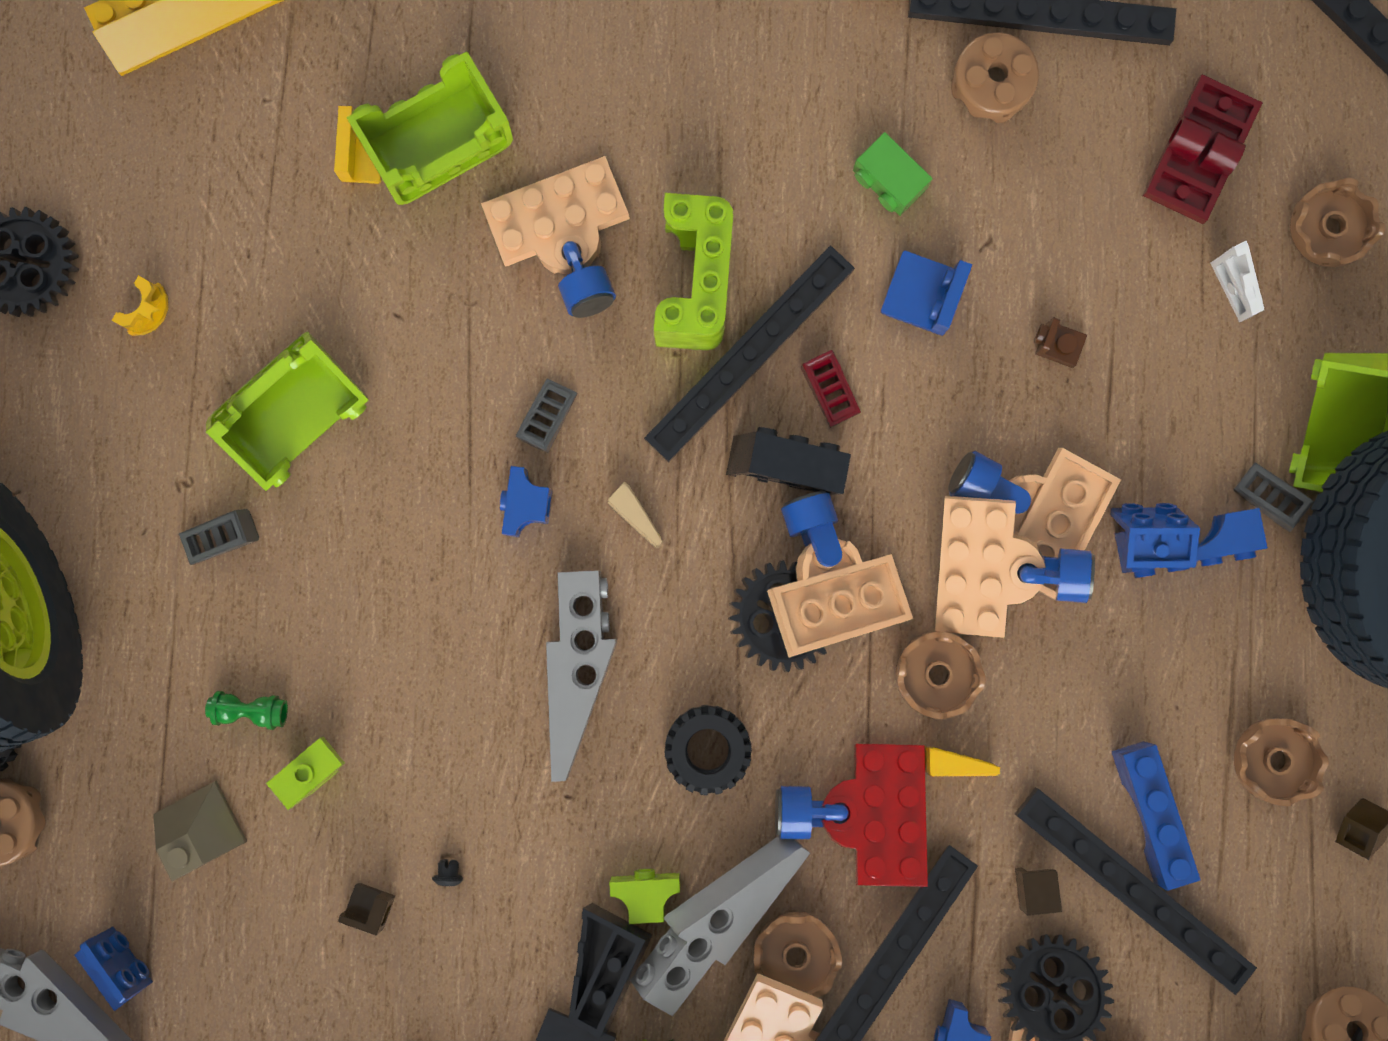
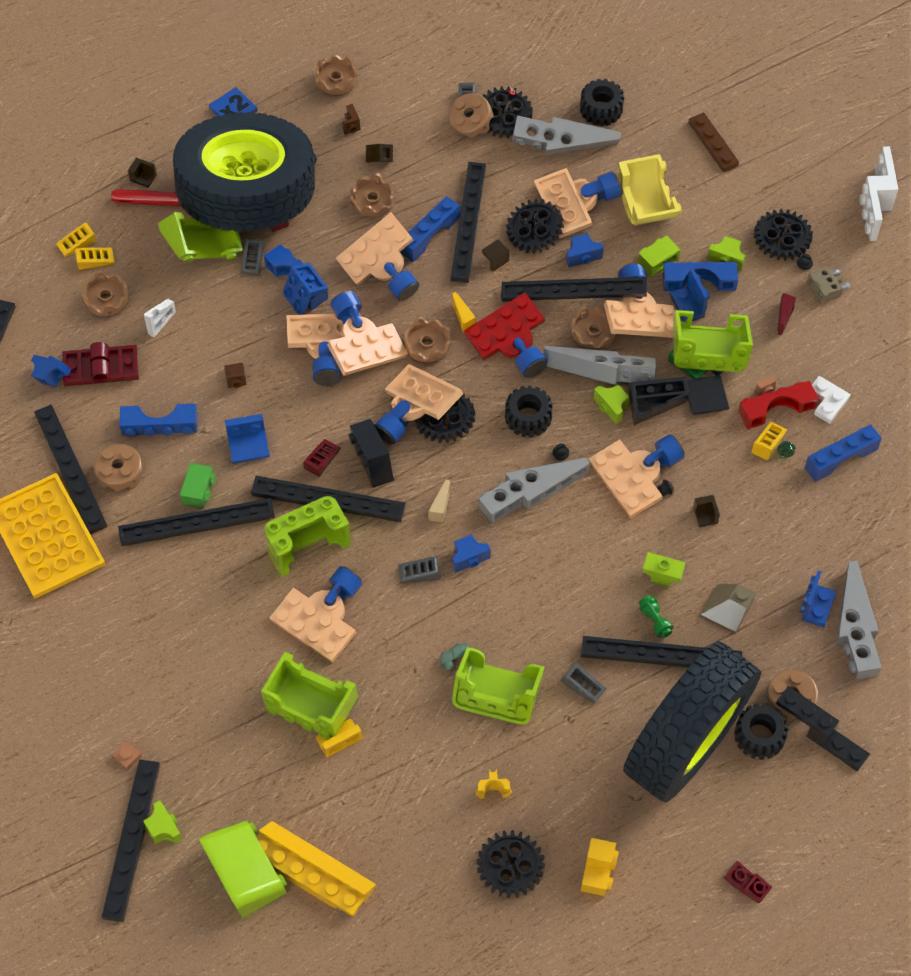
camera: 125 degrees left, 25 degrees down
(185, 679) = (640, 651): none -> black plate
(378, 380) = (453, 654): none -> sand green arm
(502, 839) = (633, 474): none -> light nougat plate
(613, 756) = (560, 452): none -> black piece
(830, 141) = (196, 522): none -> black plate
(1026, 215) = (181, 420): none -> blue arch
(1147, 694) = (379, 255): none -> light nougat plate
(1238, 60) = (49, 370): none -> blue brick

